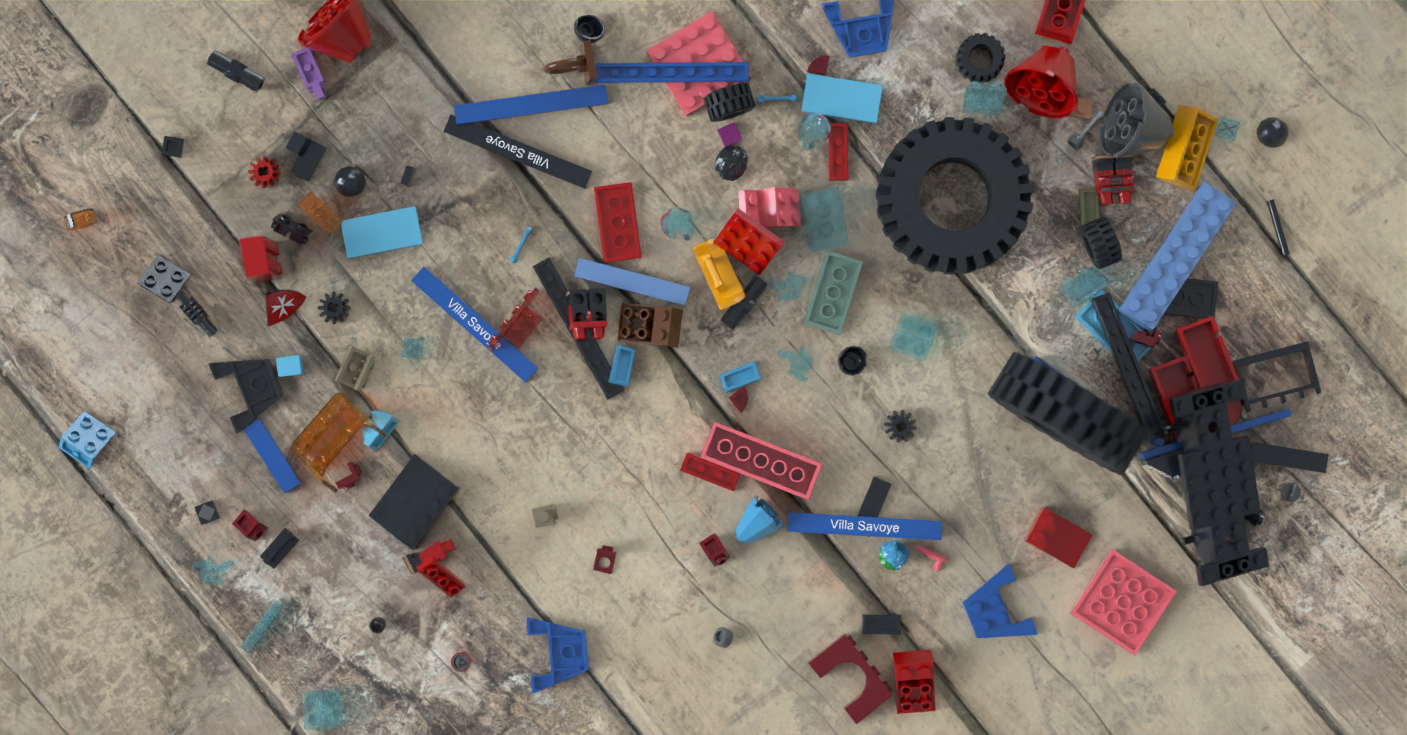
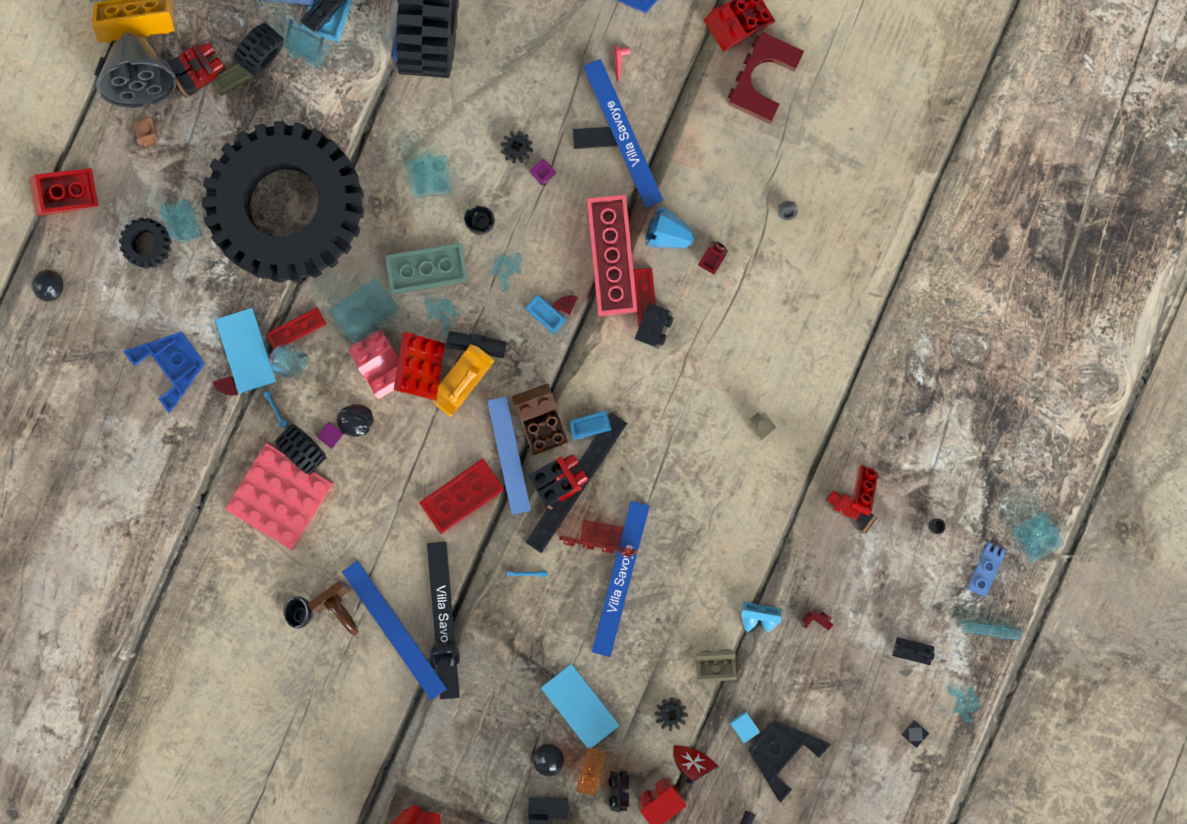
camera: 115 degrees left, 0 degrees up
(249, 526) = (907, 689): dark red bracket -> none
(272, 456) = (833, 701): blue tile -> none
(317, 649) = (986, 569): none -> medium blue hinge
(329, 434) = (787, 658): clear orange windscreen -> none
(408, 176) = (516, 709): black tile -> none
(412, 348) = (671, 623): clear light blue tile -> none
(414, 502) = (809, 550): black slope -> none
(460, 661) = (930, 434): tile -> none
(486, 138) = (445, 654): none -> black hair
(566, 652) = (872, 344): blue wing -> none
(605, 551) = (764, 352): dark red bracket -> none
(672, 72) = (299, 515): blue tile -> none
(676, 220) = (433, 443): clear light blue helmet -> none
(680, 466) = (654, 326): none -> black bracket
(867, 438) = (542, 172): none -> magenta tile
(881, 624) = (703, 75): black tile -> none
(893, 555) = (636, 94): dark azure piece -> none
(1045, 83) = (138, 171): red cone -> none
(1077, 140) = (177, 118): hinge -> none

